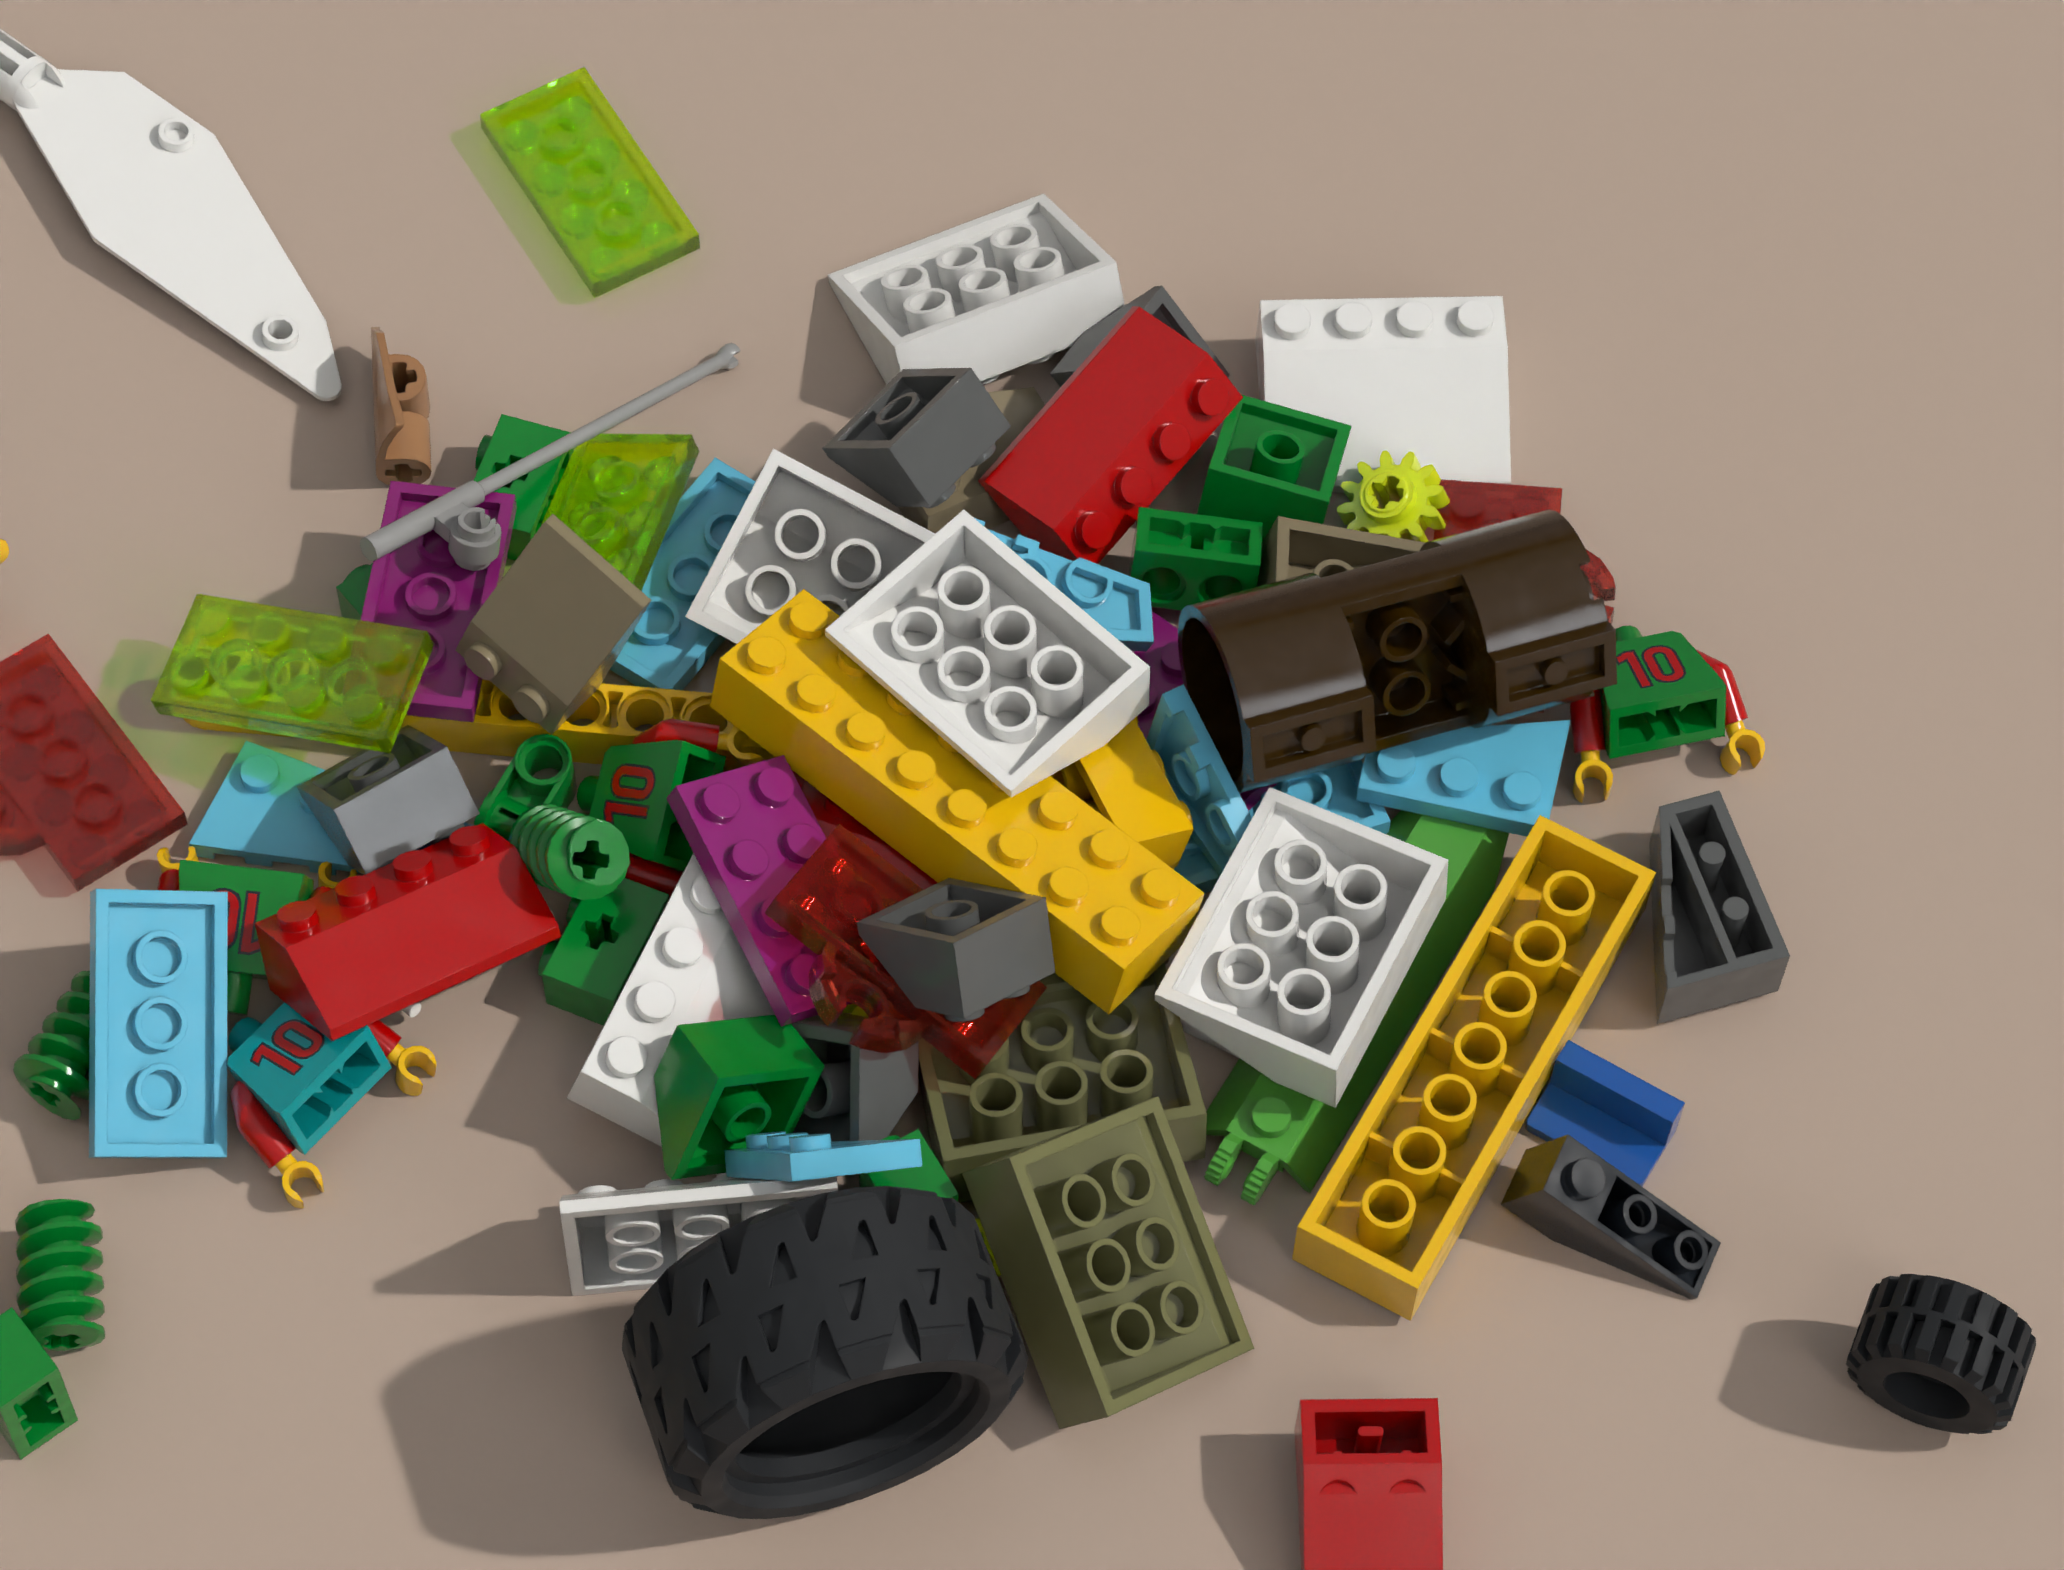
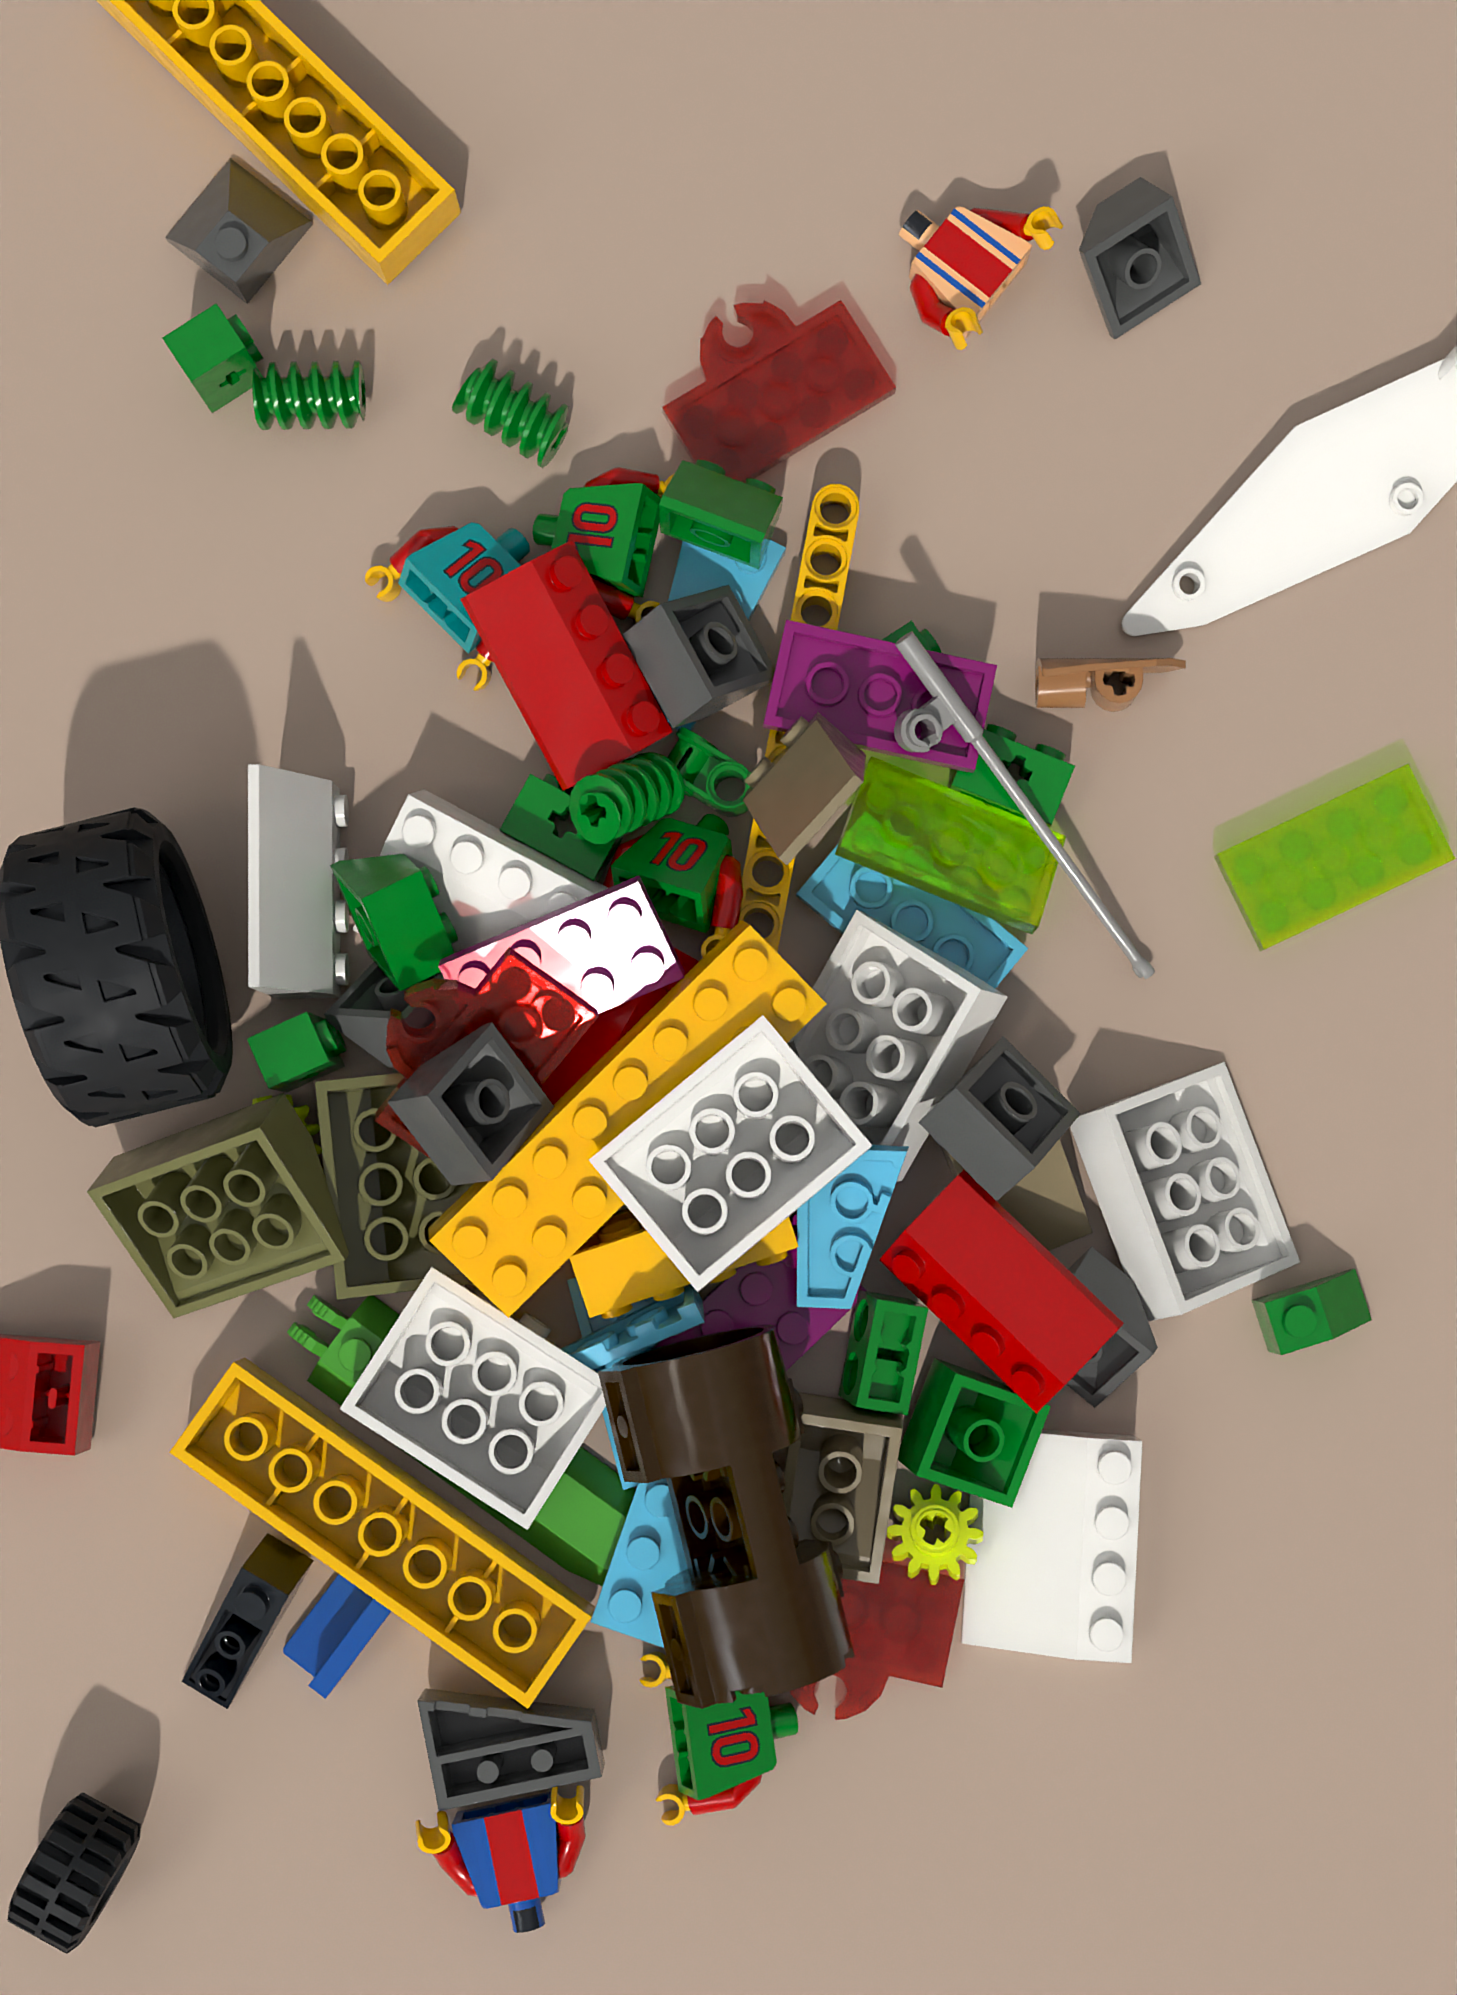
camera: 100 degrees right, 25 degrees up
(158, 1024) = (506, 467): medium azure plate -> none
(214, 781) = (720, 512): none -> green slope
(293, 673) = (810, 578): clear neon green plate -> none
(814, 1156) = (296, 974): medium azure wing -> none
(1101, 179) = (1312, 1312): none -> green slope
(1823, 896) = (510, 1851): none -> torso

